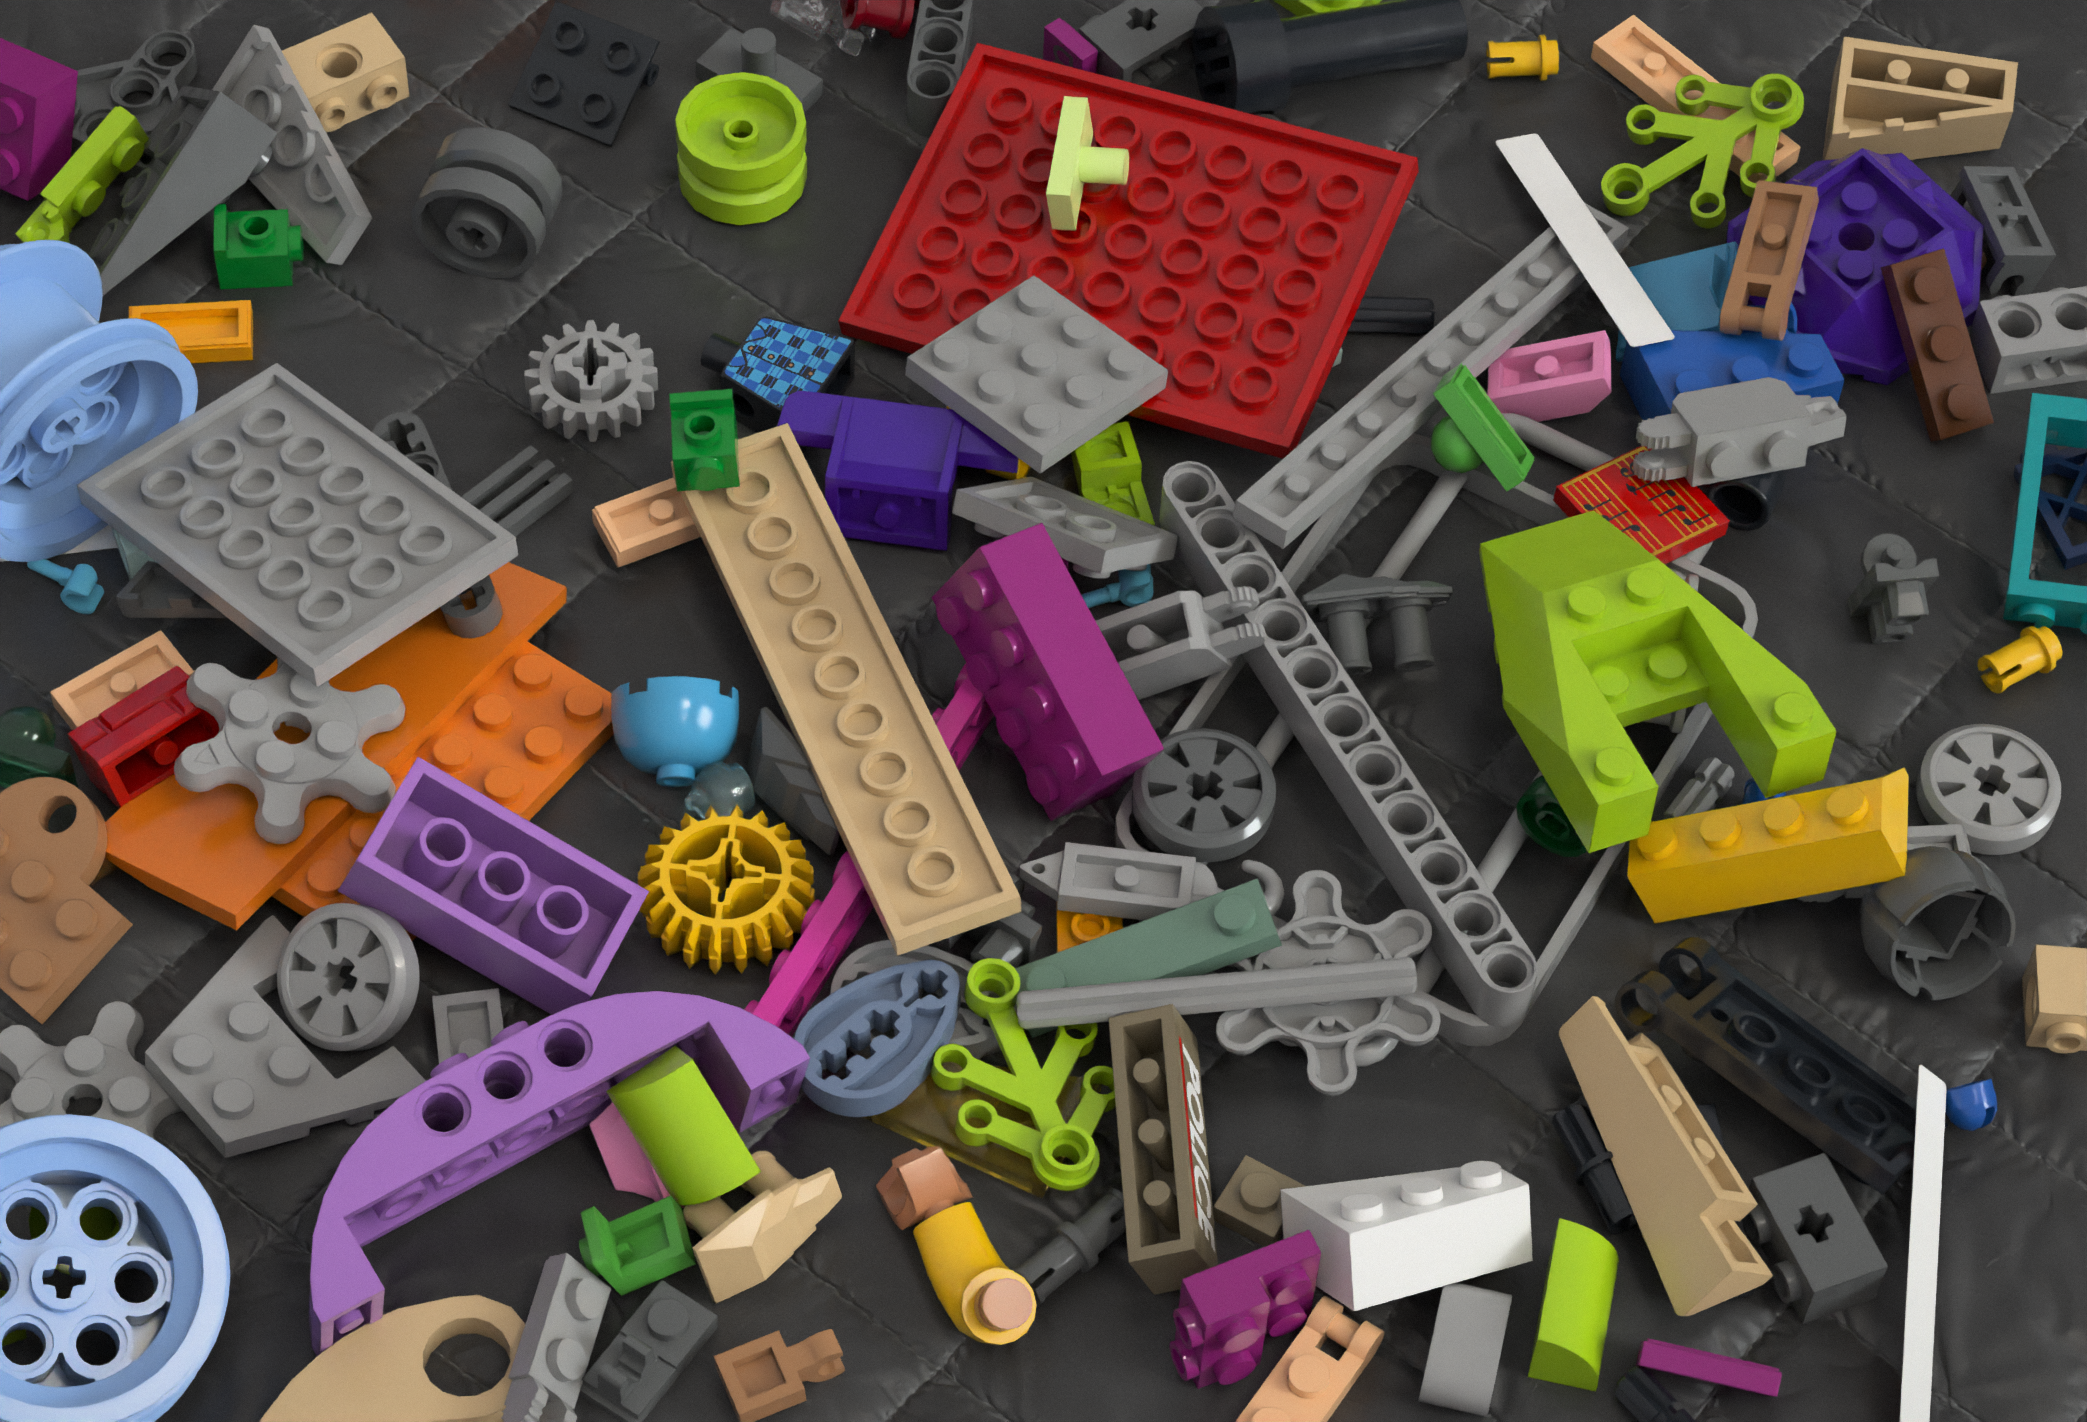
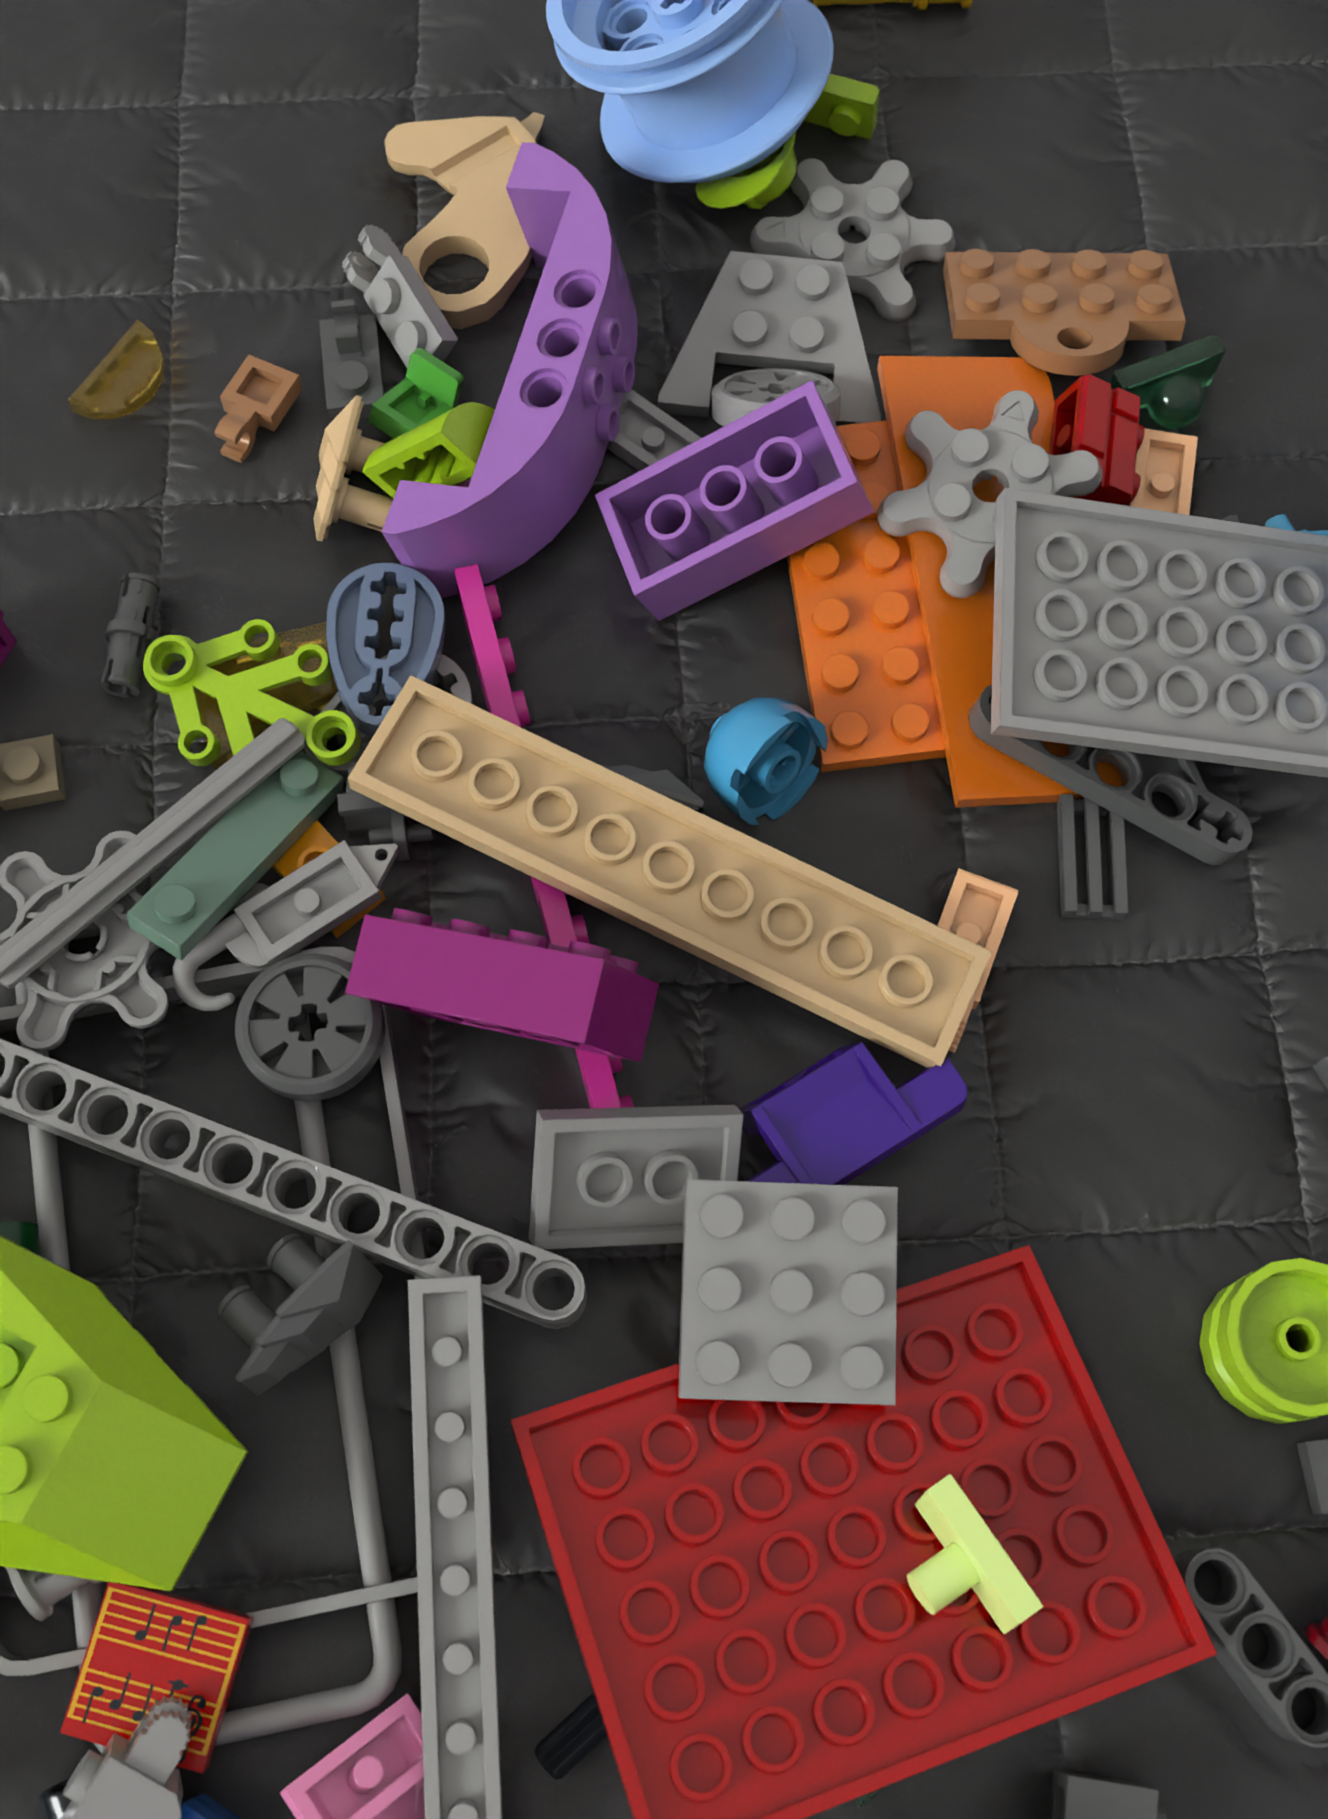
camera: 140 degrees right, 15 degrees up
(621, 380) = (1170, 1025): light grey gear -> none
(704, 440) = (965, 984): green brick -> none
(721, 787) = (681, 743): clear light blue plate -> none
(757, 907) = (609, 647): yellow gear -> none
(776, 362) = (1015, 1143): torso -> none
(962, 1264) = (198, 561): piece -> none
(1068, 47) = (1143, 1765): magenta tile -> none
(1111, 470) = (643, 1286): lime slope -> none
(1162, 1147) = (102, 718): dark tan brick -> none
(1180, 637) = (449, 1119): light grey hinge -> none
(1476, 432) = (355, 1606): bright green tile -> none

